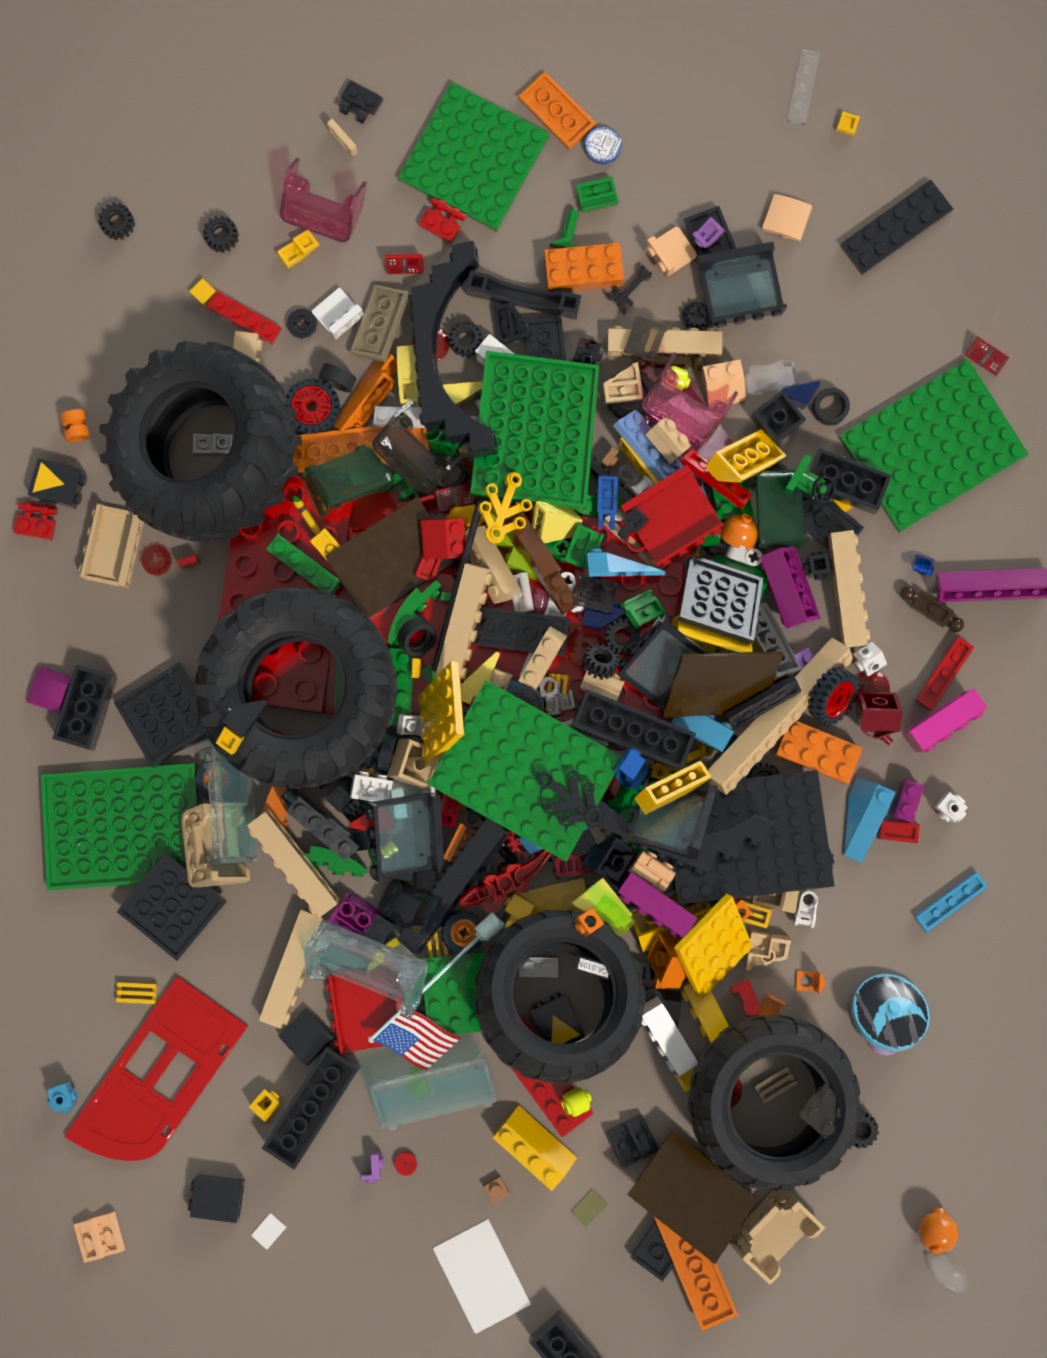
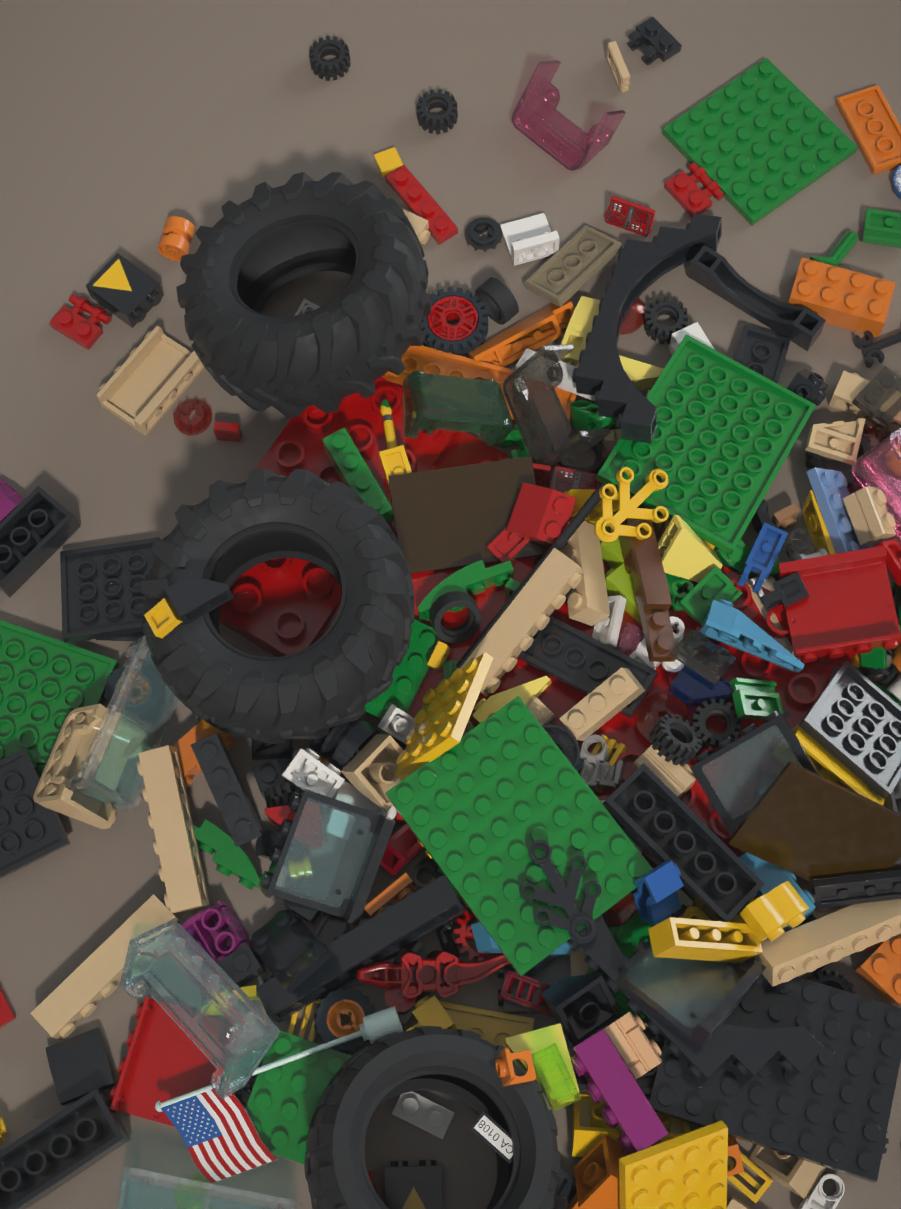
camera: 25 degrees right, 15 degrees down
(297, 250) = (514, 160): yellow slope -> none
(510, 324) = (726, 323): black wing -> none
(709, 747) = (774, 912): none -> yellow brick

